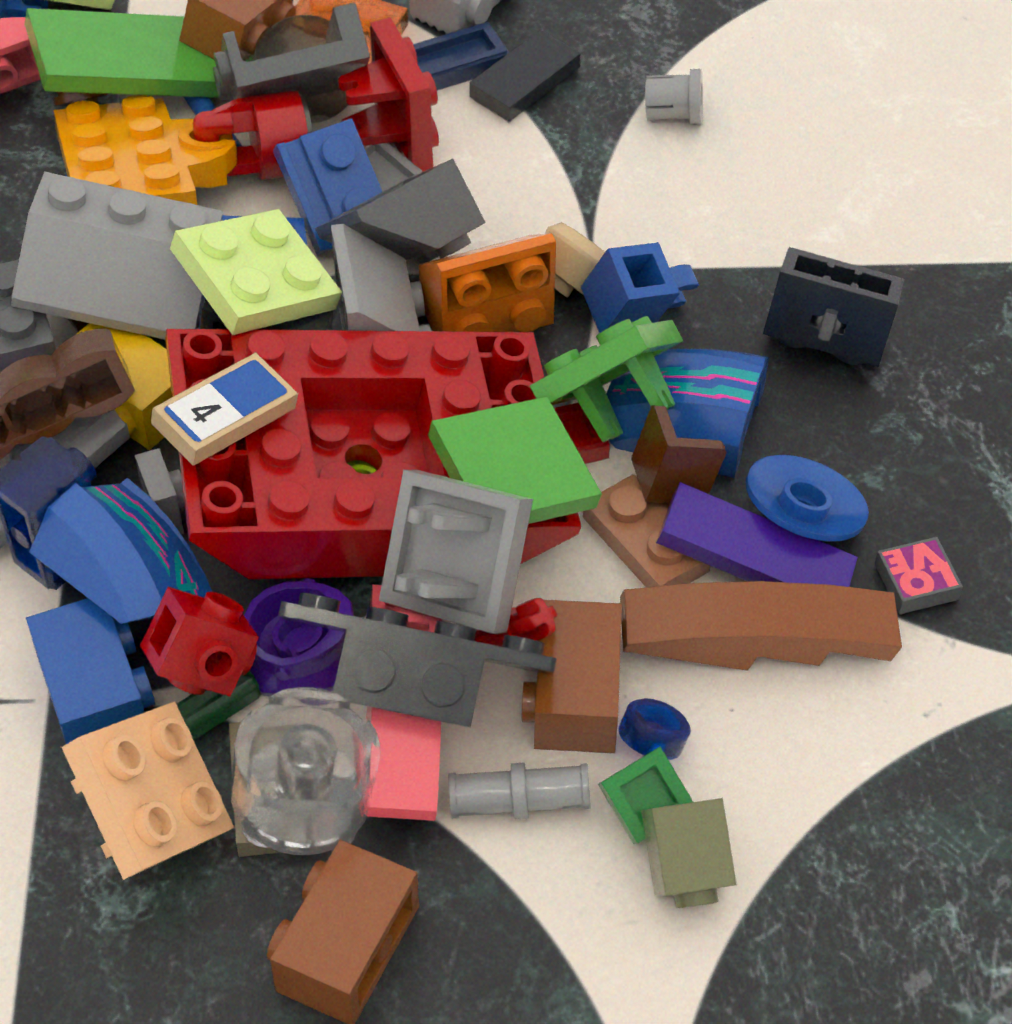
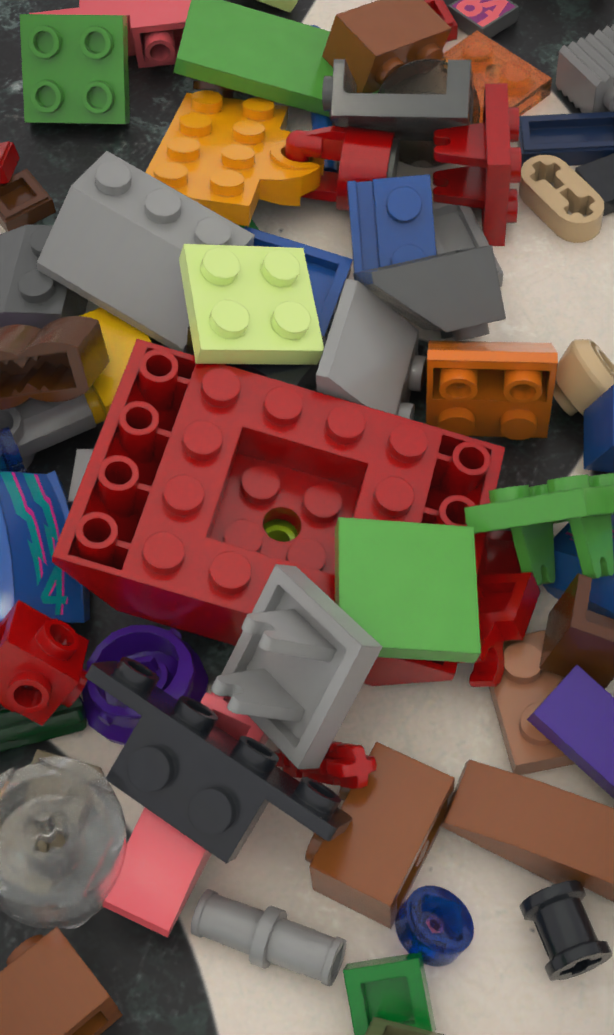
camera: 30 degrees right, 5 degrees up
(224, 408) = (139, 440): tile -> none
(472, 115) = (568, 193): none -> tan beam
(602, 459) = (504, 615): none -> red plate
(762, 692) = (565, 930): none -> black bush

